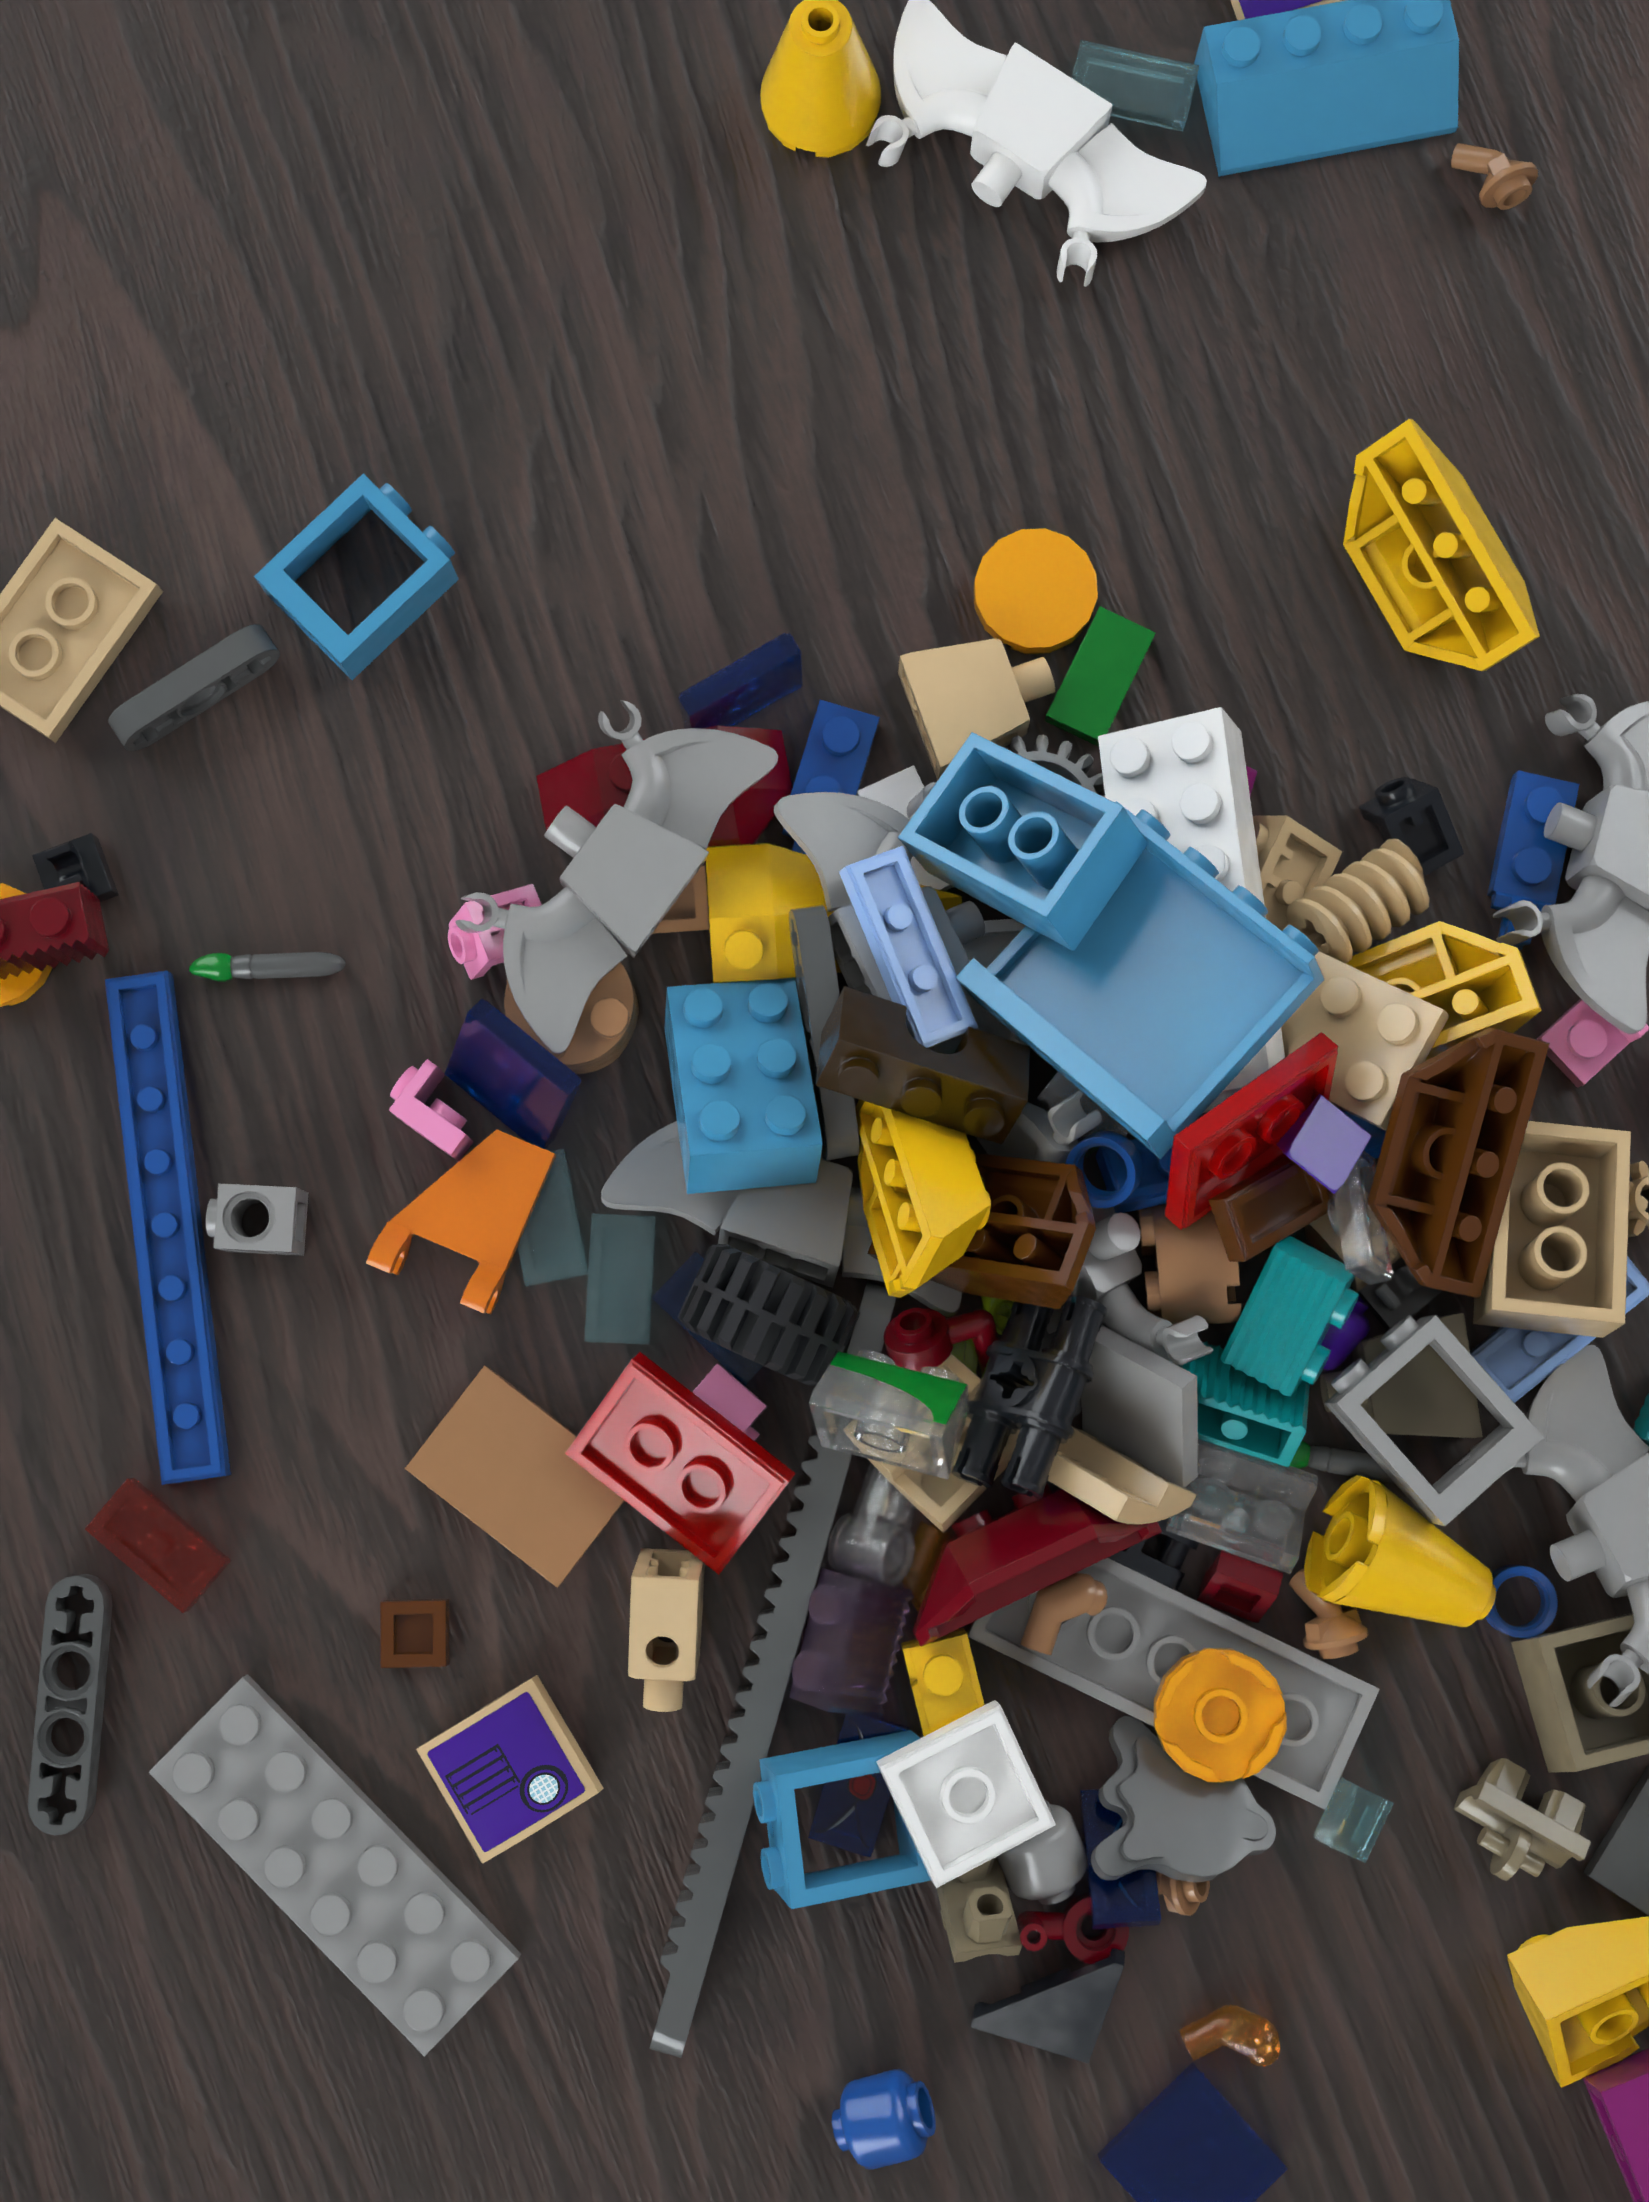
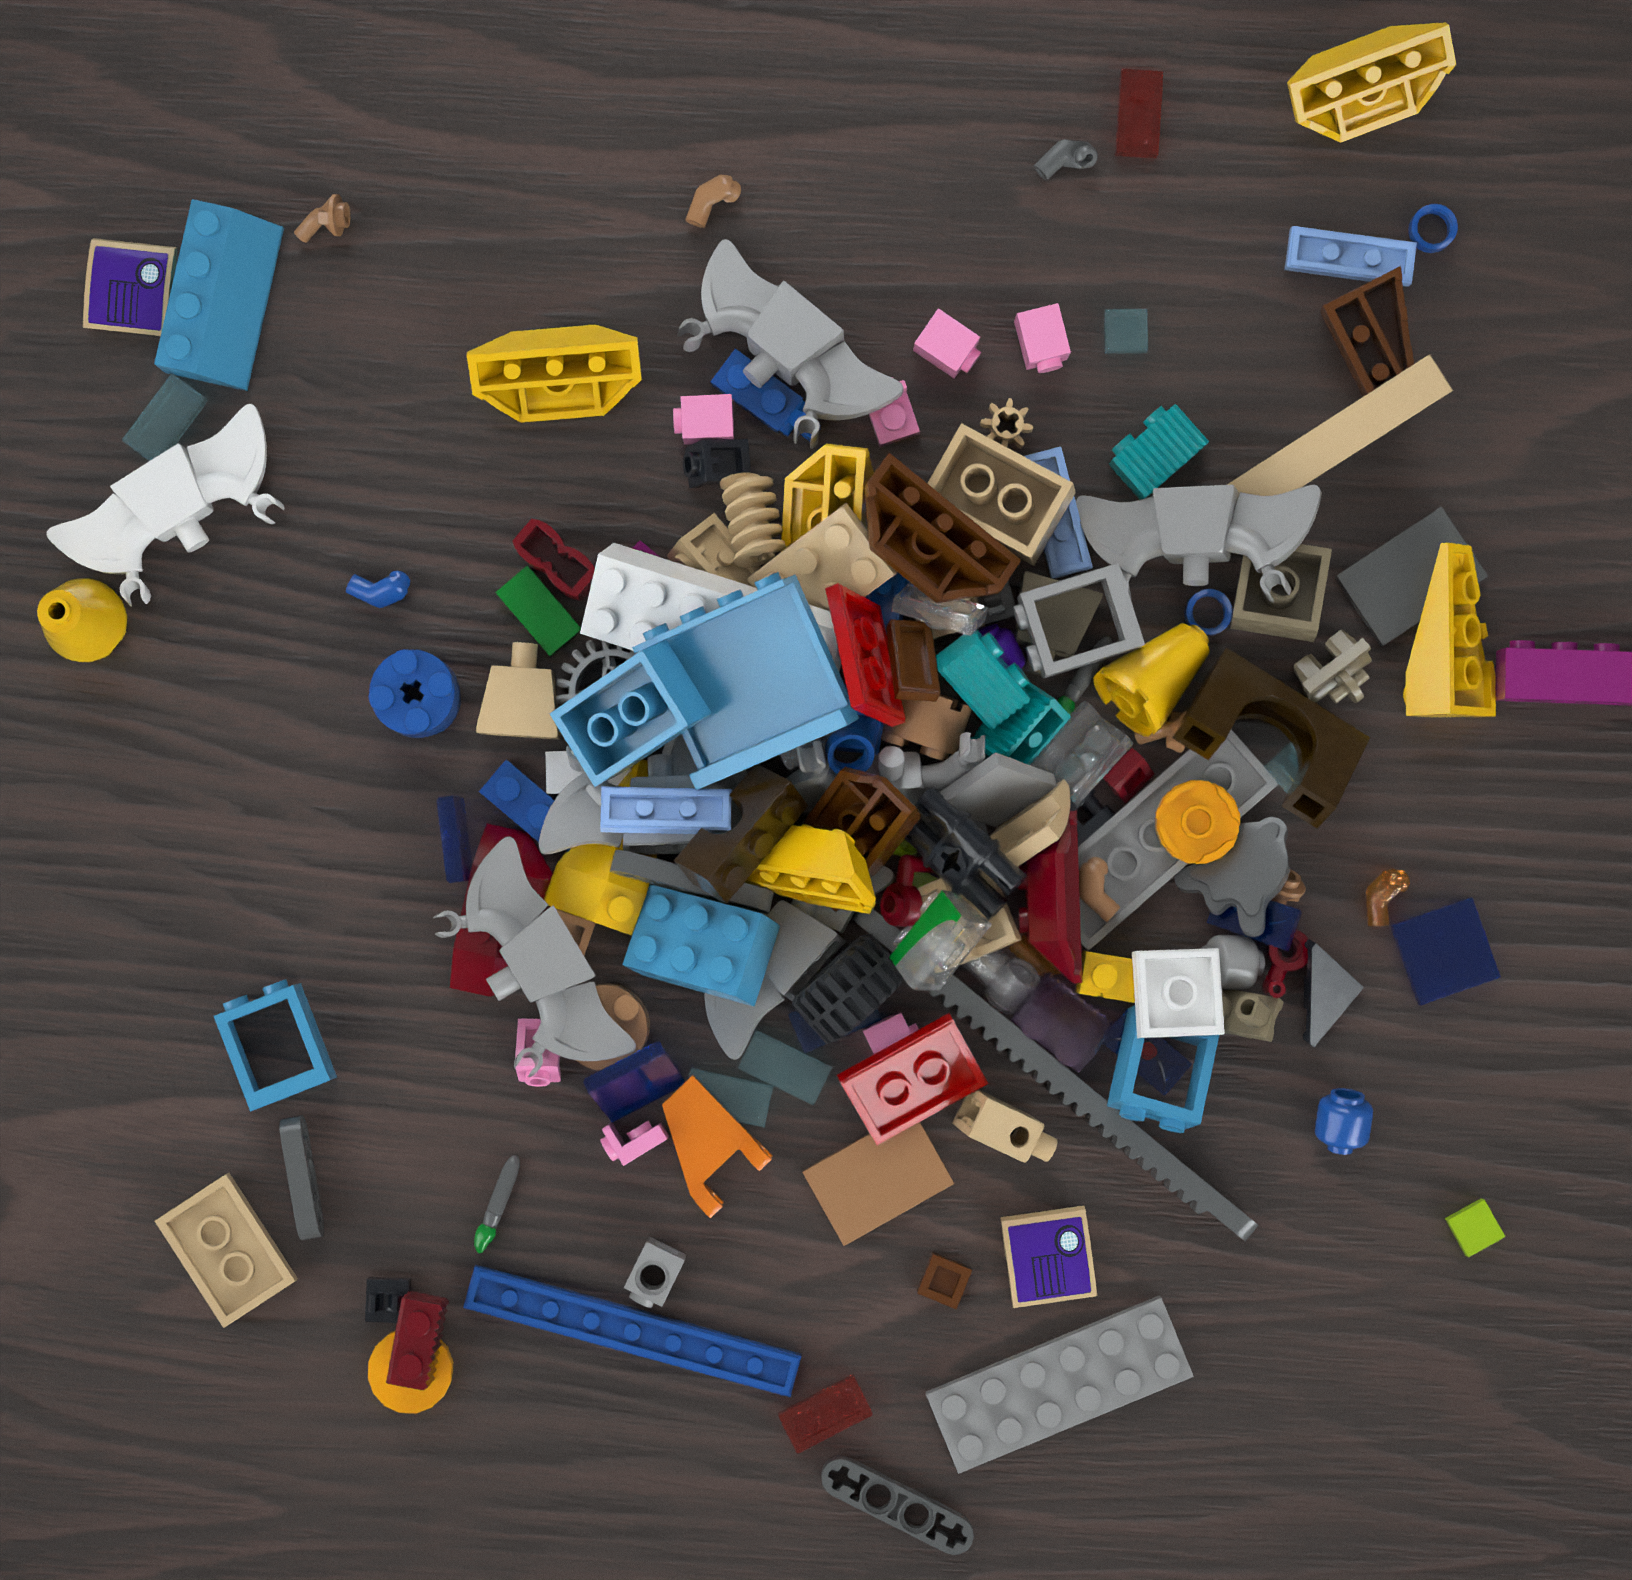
camera: 70 degrees left, 5 degrees up
(921, 523) = (391, 700): none -> blue brick
(1030, 458) = (382, 592): none -> blue arm
(1035, 590) = (467, 627): light orange tile -> none
(1183, 657) = (549, 554): none -> dark red brick
(1325, 1143) = (891, 614): slope -> none
(1413, 1849) = (1323, 742): none -> dark brown arch
(1468, 781) = (704, 418): none -> bright pink brick

